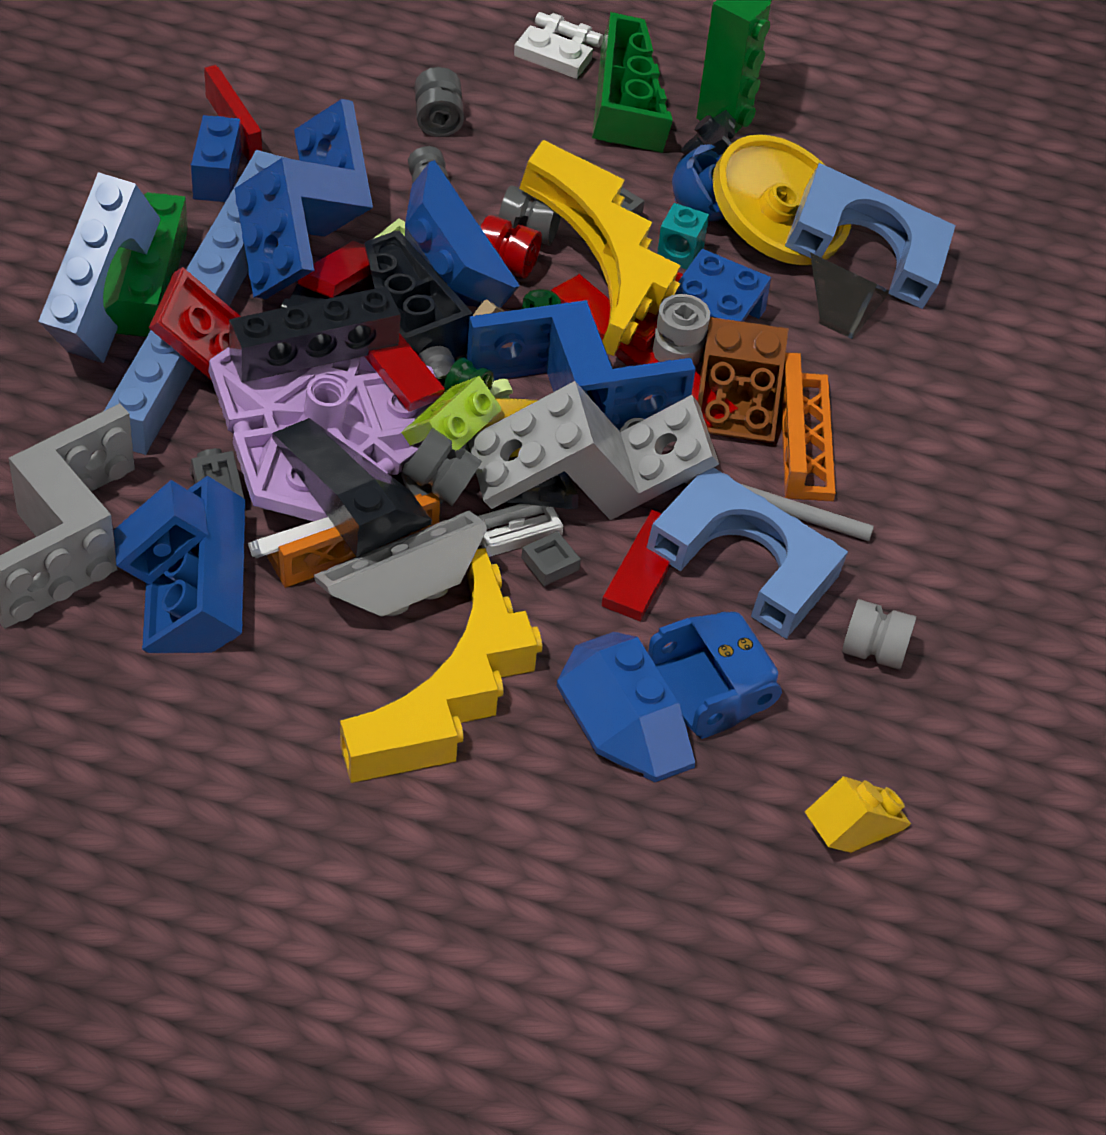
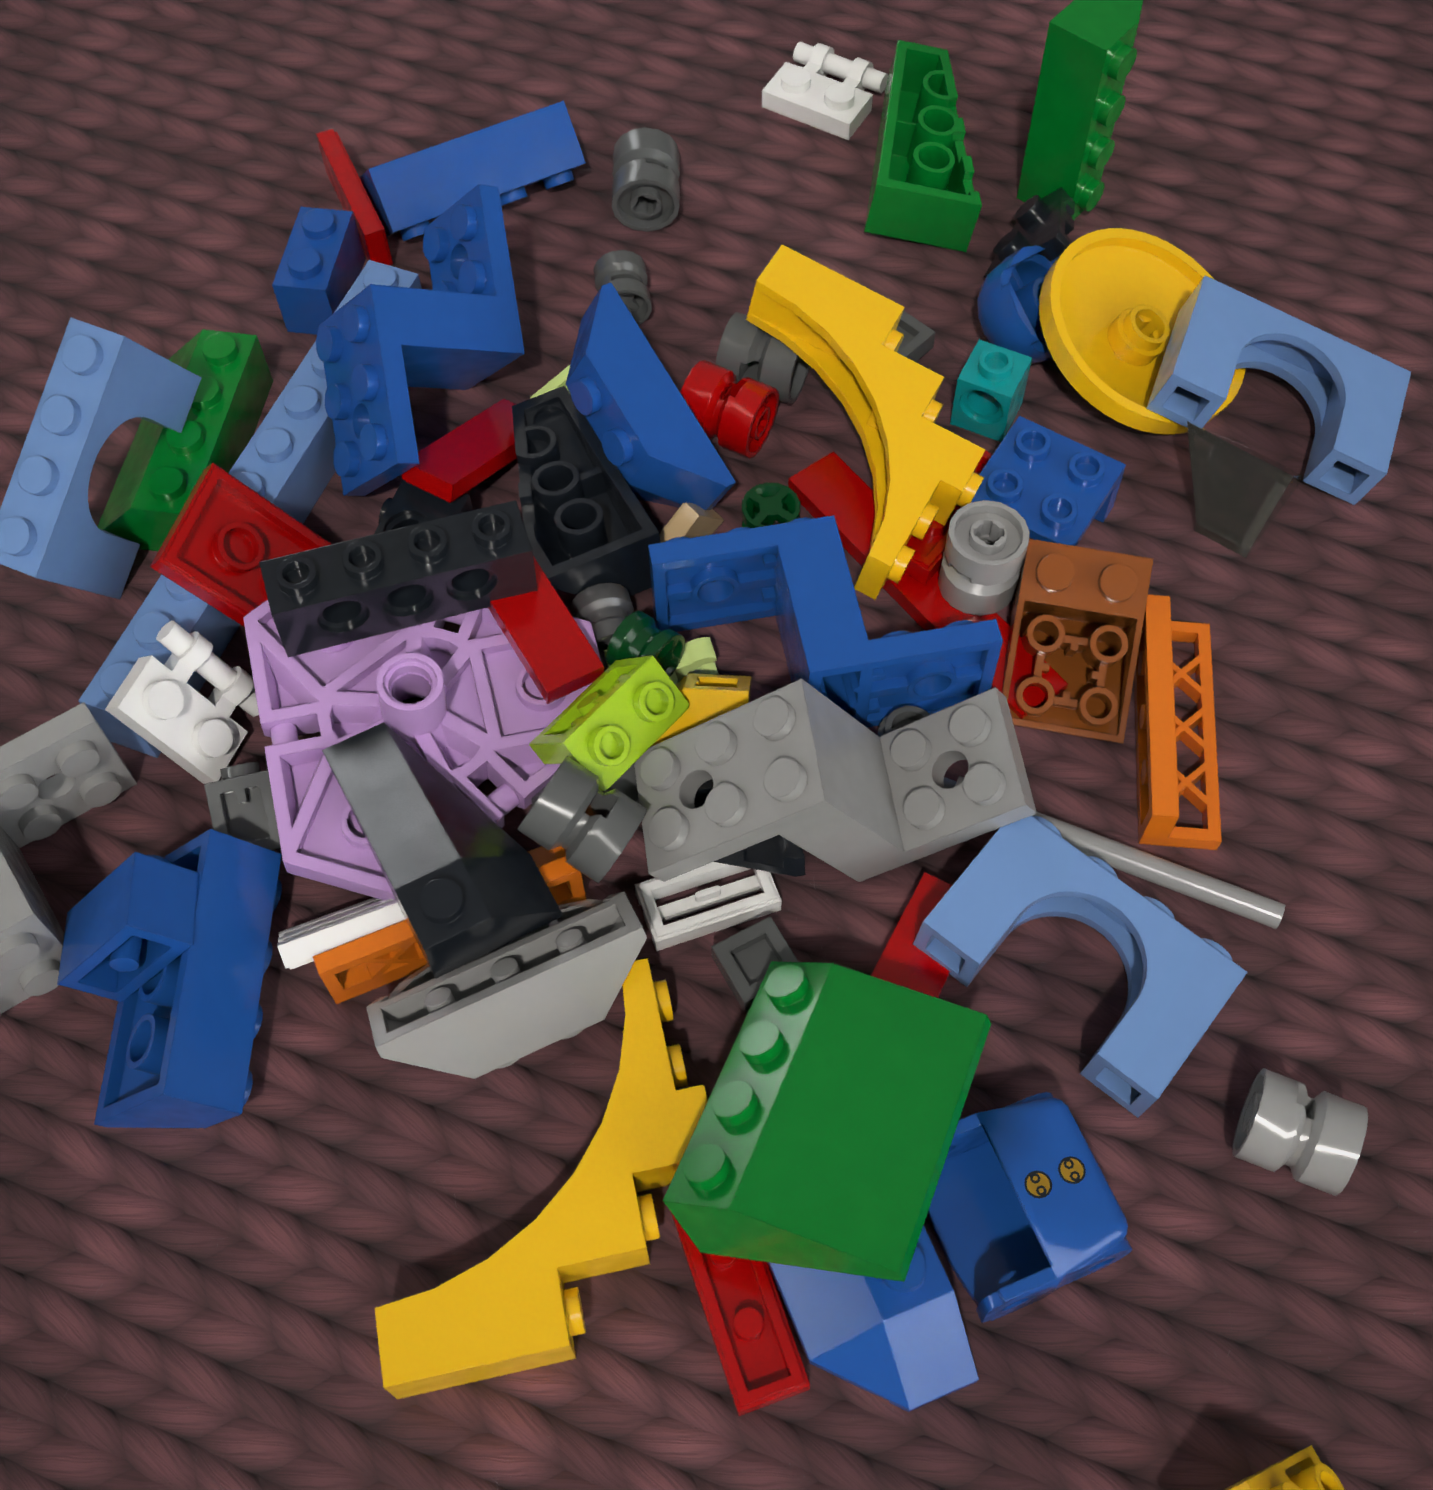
camera: 10 degrees right, 10 degrees up
(166, 421) = (176, 716): none -> white plate
(306, 95) = (504, 155): none -> blue slope
(550, 724) = (746, 1327): none -> red tile
(600, 617) = (829, 1123): none -> green slope

